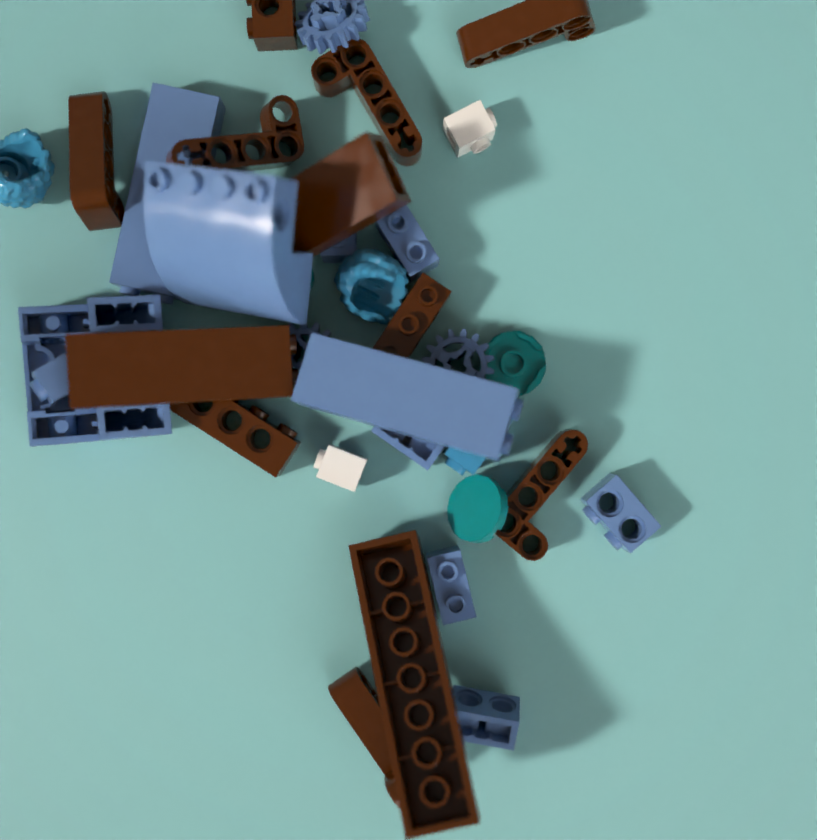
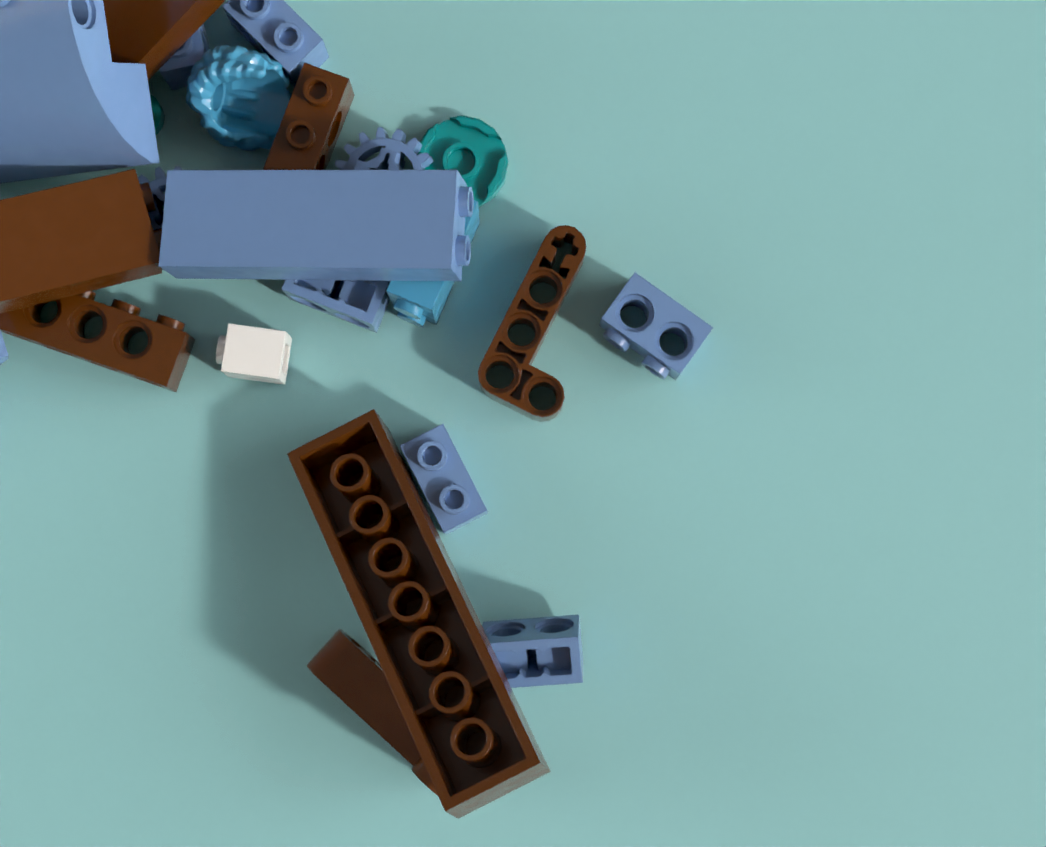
camera: 15 degrees left, 5 degrees down
(477, 508) = (455, 365): teal tile -> none

